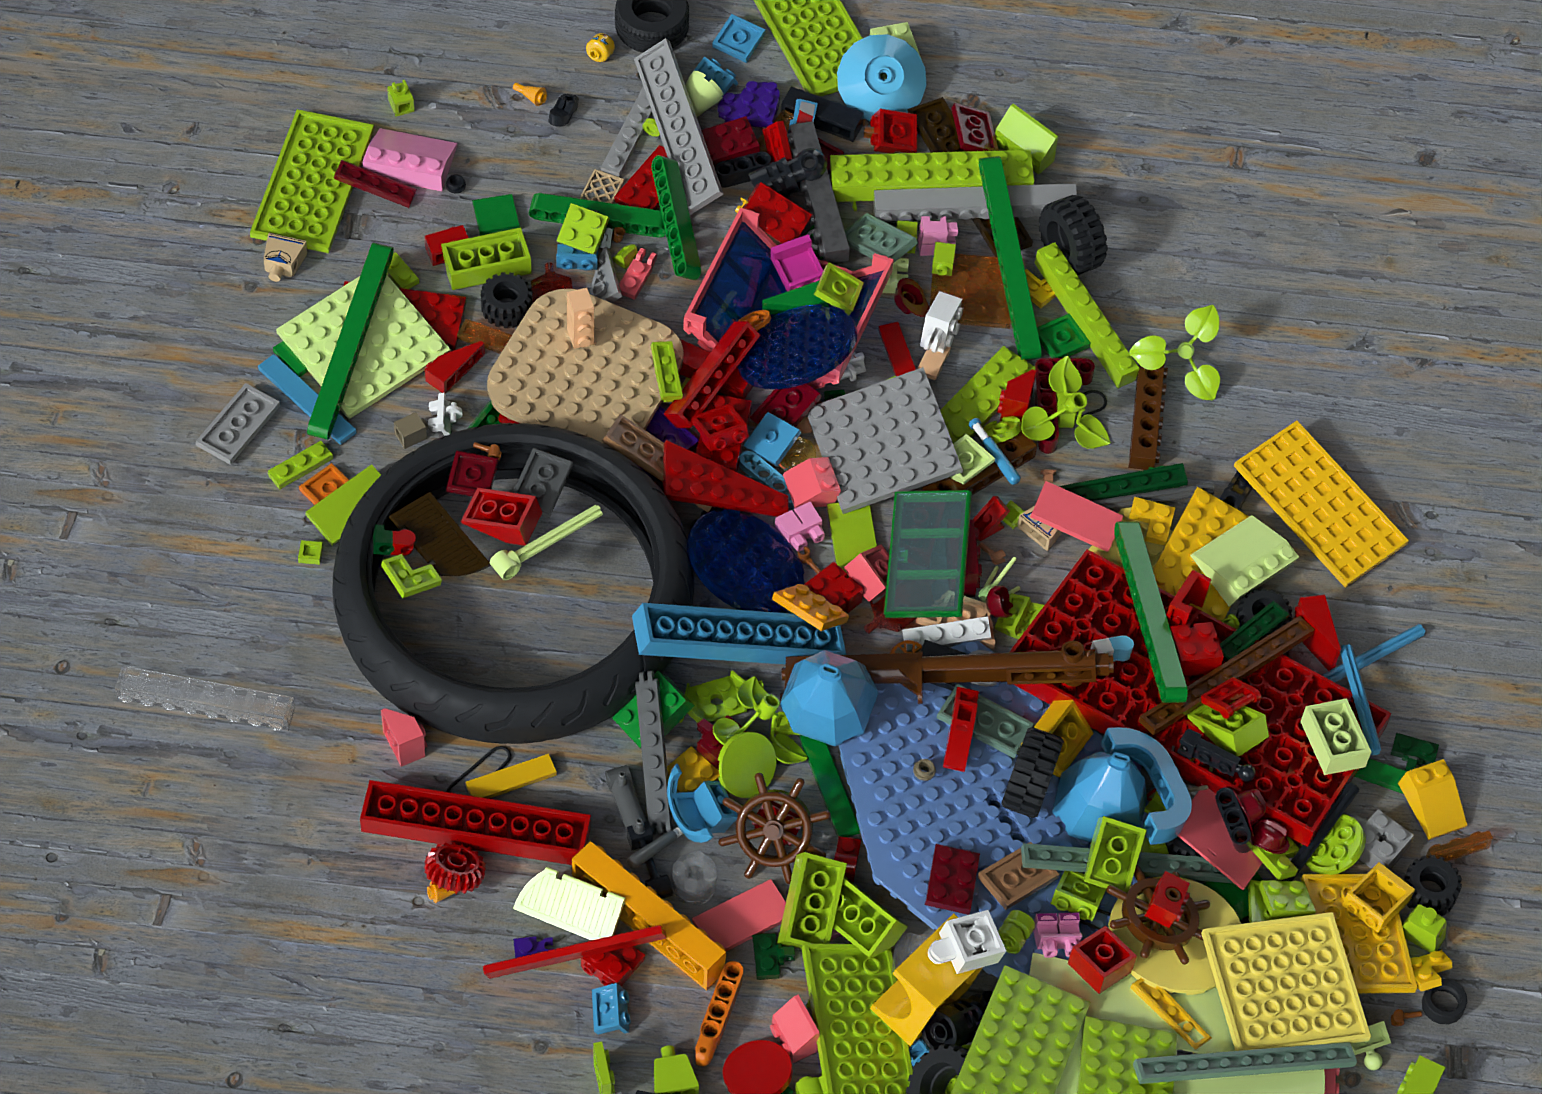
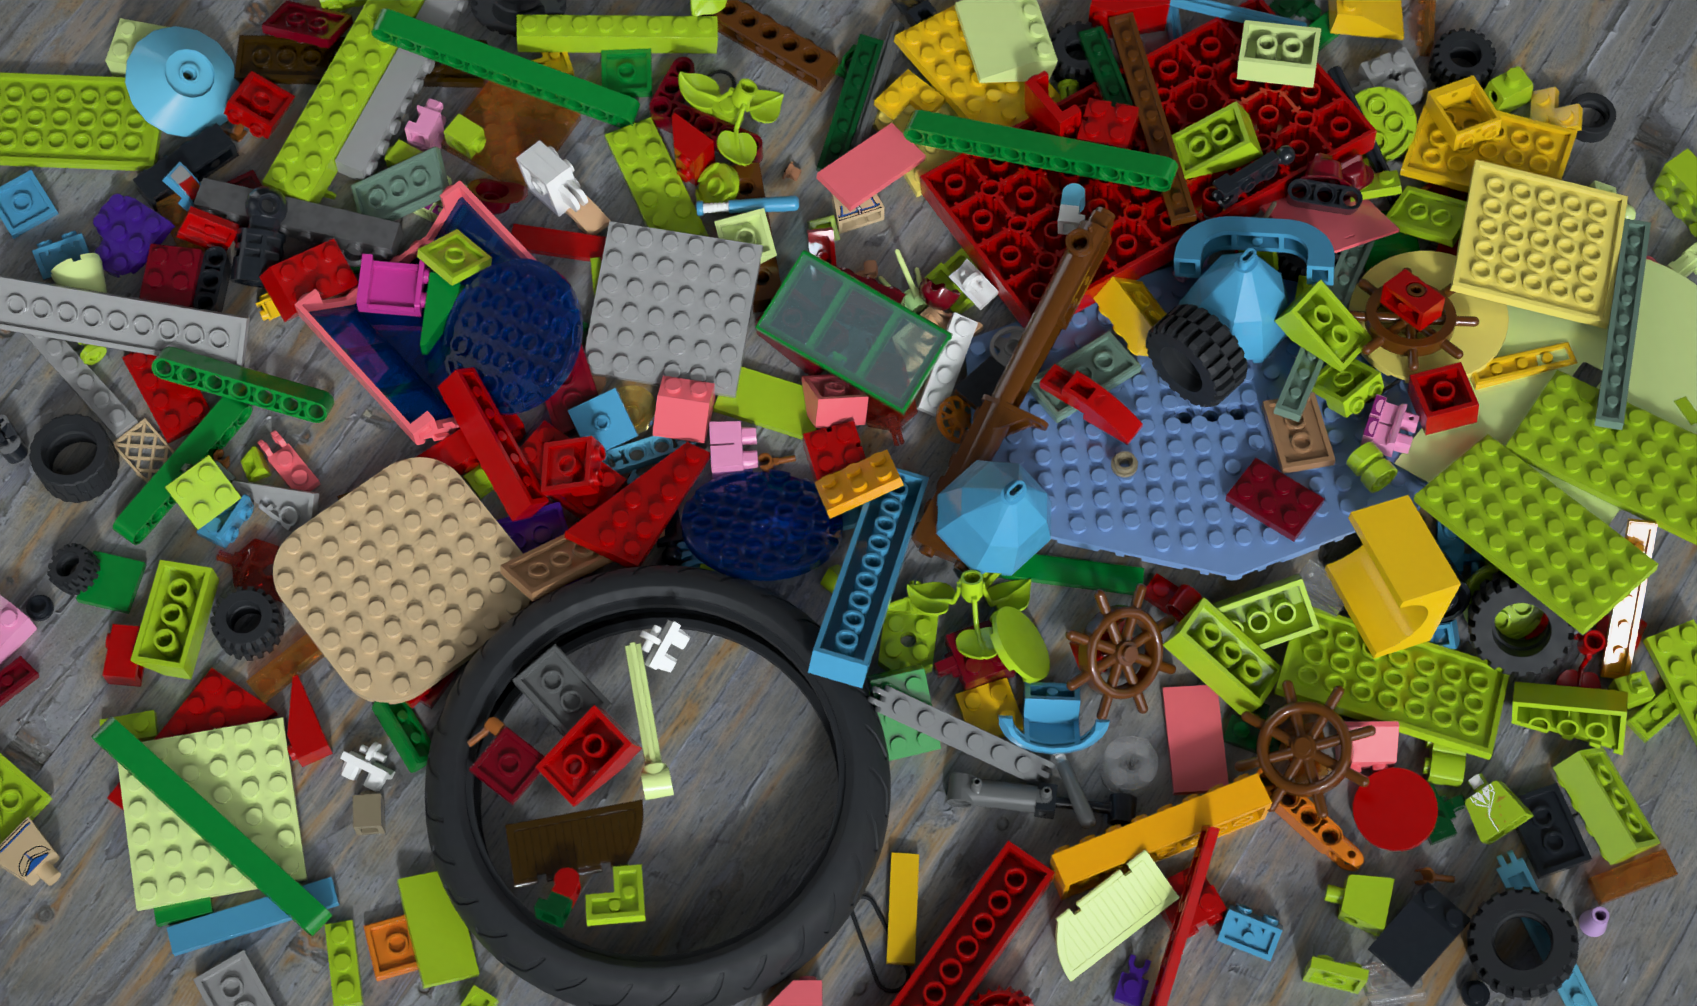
camera: 60 degrees left, 10 degrees up
(491, 187) = (65, 561): none -> black tyre
(568, 132) = (58, 435): none -> black tyre
(580, 318) = (352, 546): light nougat brick -> none
(616, 525) = (670, 635): none -> white hips
(666, 371) = (467, 488): lime plate -> none
(757, 319) = (438, 367): orange wheel -> none
(768, 986) = (1304, 749): none -> reddish brown brick
(968, 943) = (1404, 512): white brick -> none
(1020, 620) = (974, 284): none -> white hips
(1227, 692) = (1183, 126): red plate -> none
(1286, 898) = (1428, 196): lime plate -> none
(1399, 1015) = (1589, 167): dark orange hand -> none

